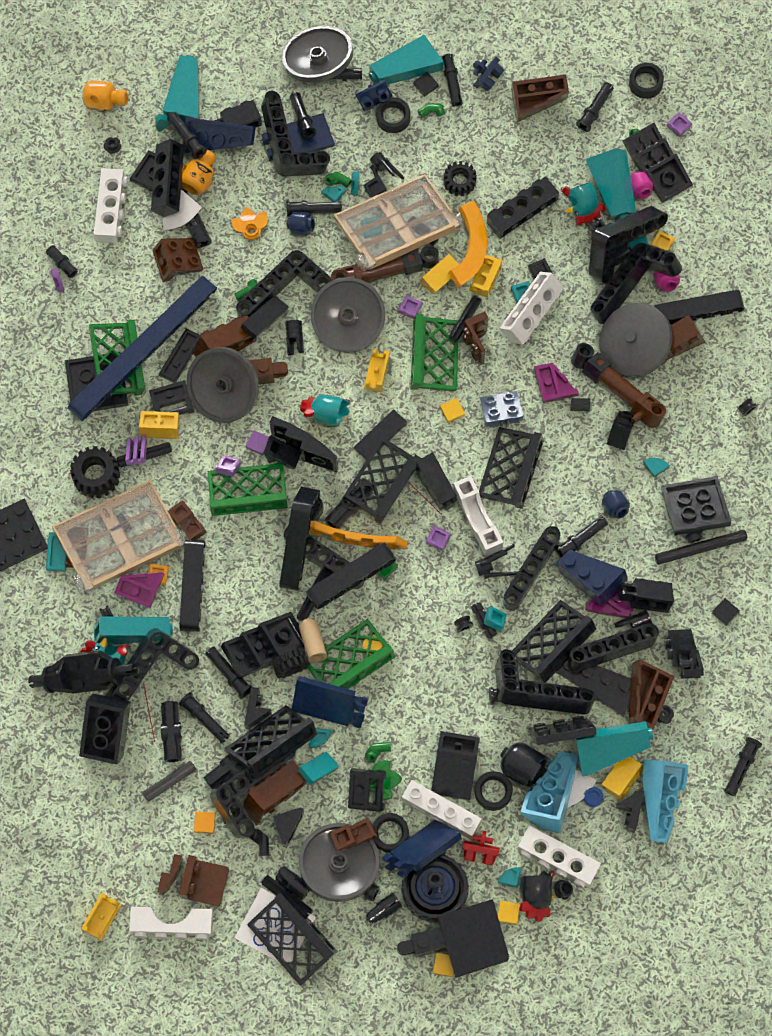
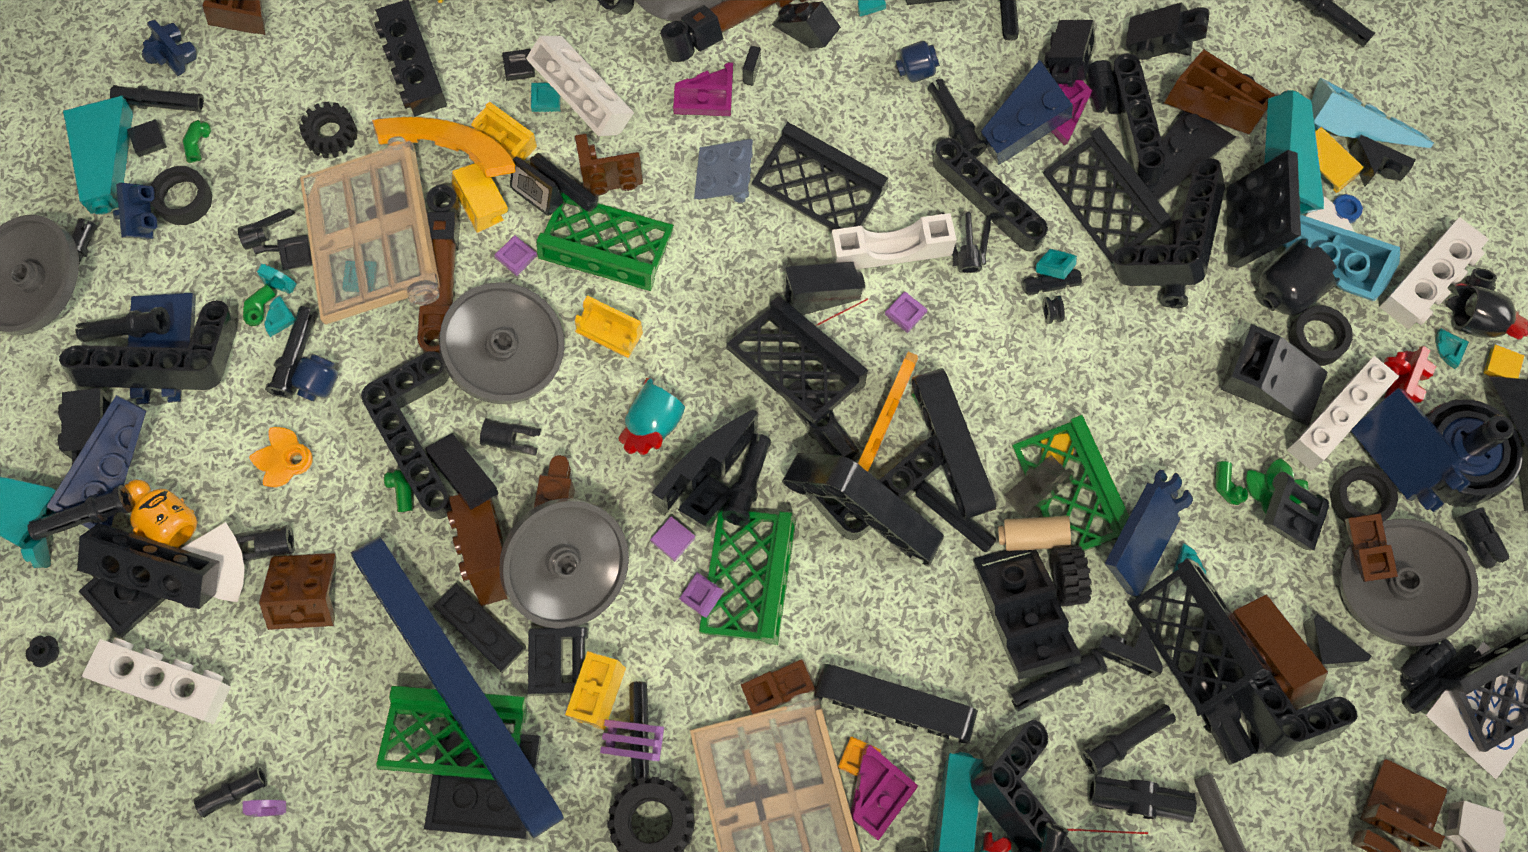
camera: 80 degrees left, 0 degrees up
(204, 822) = (1302, 781): light orange tile -> none
(262, 840) = (1353, 694): black arm -> none
(293, 471) = (744, 491): none -> black pin
(318, 768) = (1249, 576): teal tile -> none
(342, 636) = (1038, 487): none -> clear smoke panel
(386, 428) = (712, 350): black tile -> none
(452, 410) = (705, 240): yellow tile -> none
(455, 304) = (535, 187): none -> slope

